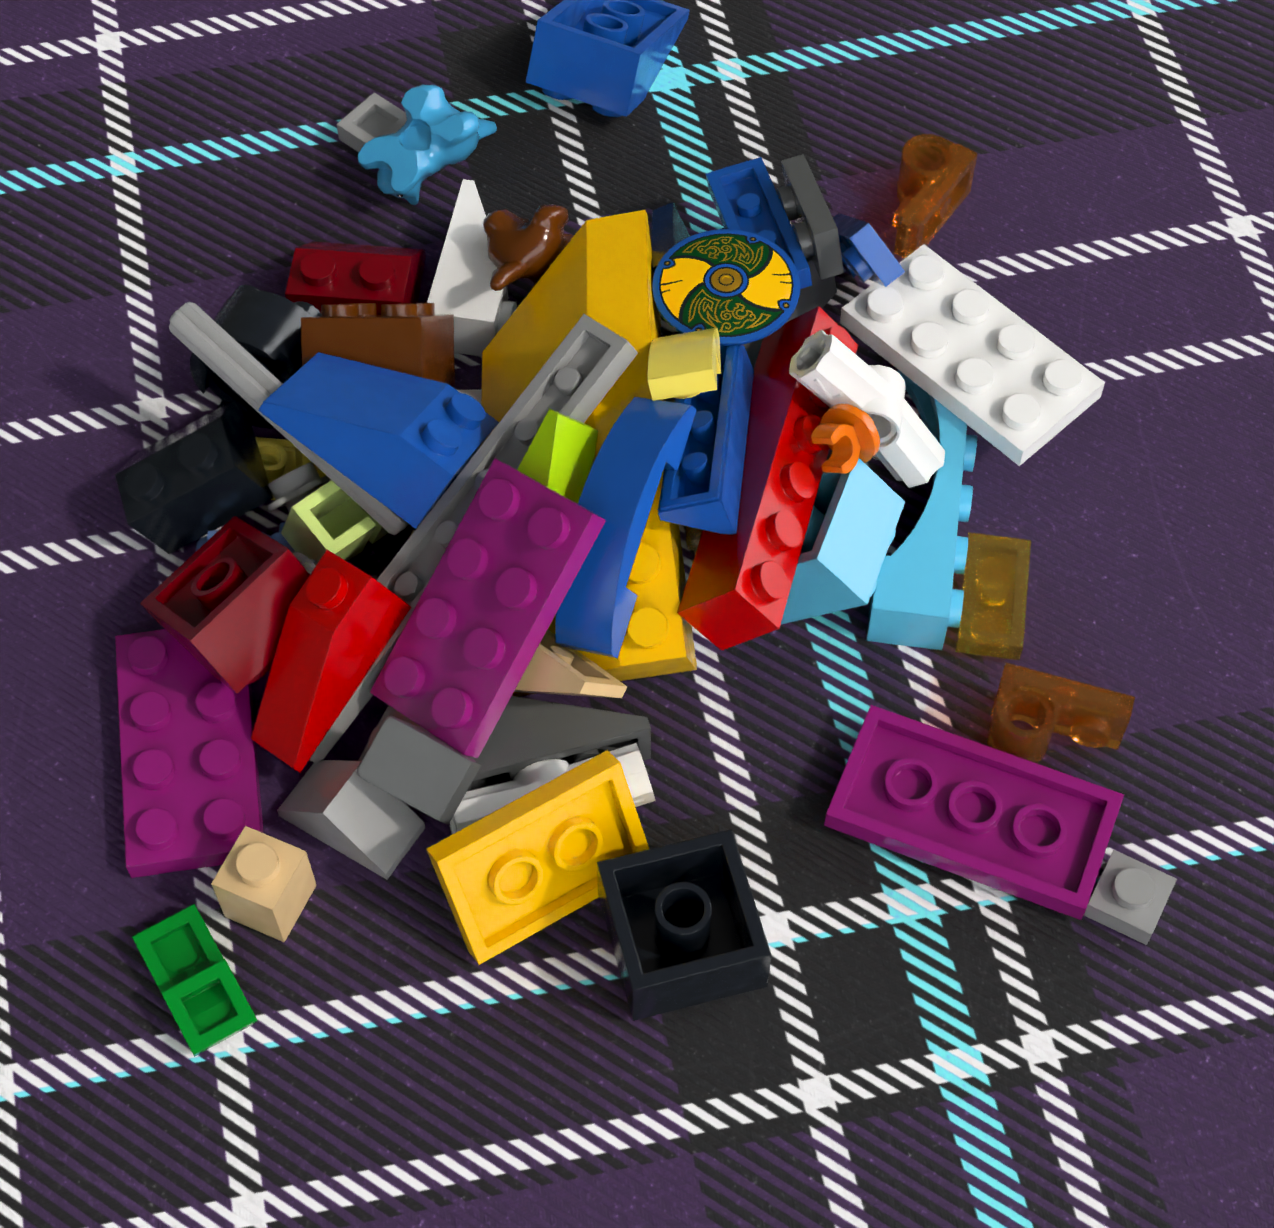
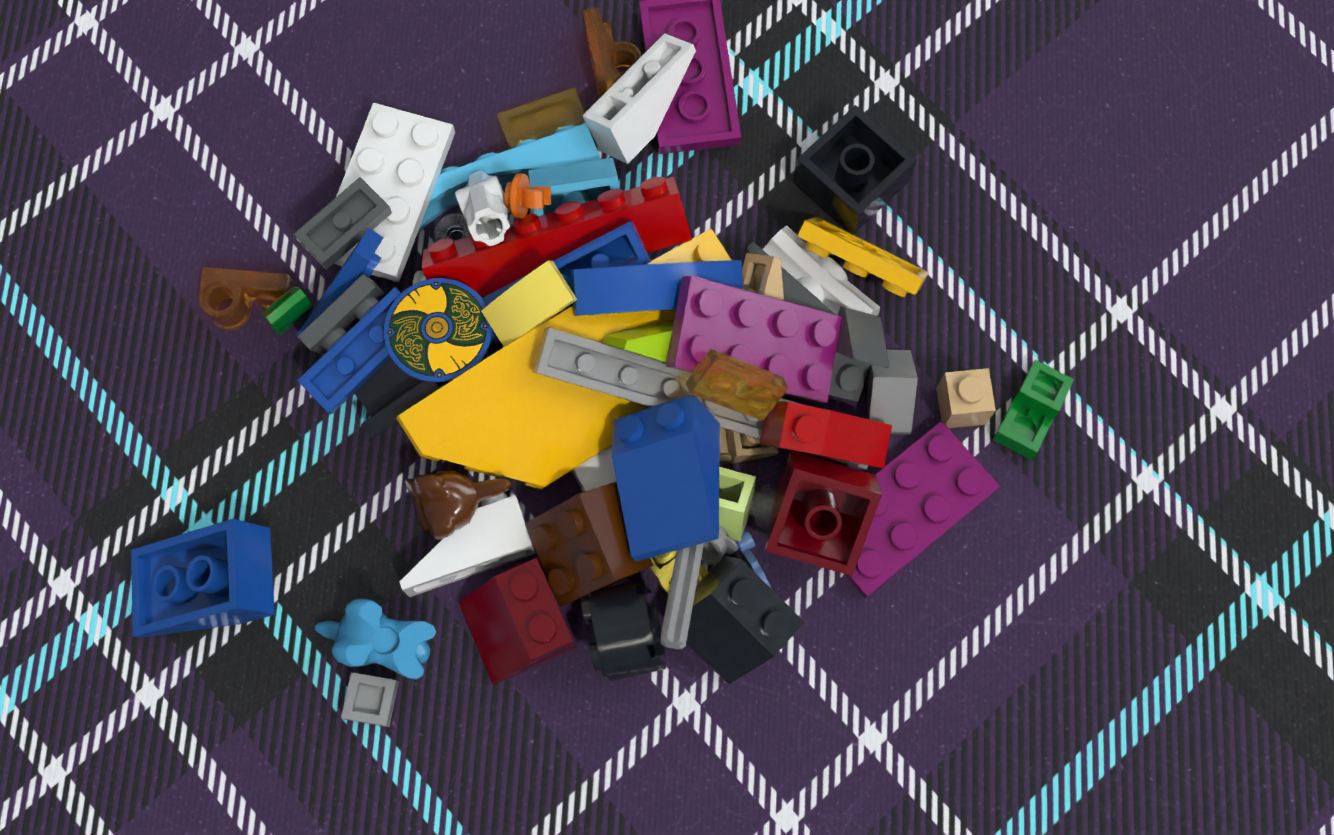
camera: 120 degrees left, 15 degrees up
(445, 516) = (736, 385): none -> clear yellow plate
(866, 194) = (287, 311): none -> green slope
(933, 262) = (342, 223): none -> dark grey plate
(946, 693) = (636, 104): none -> white slope

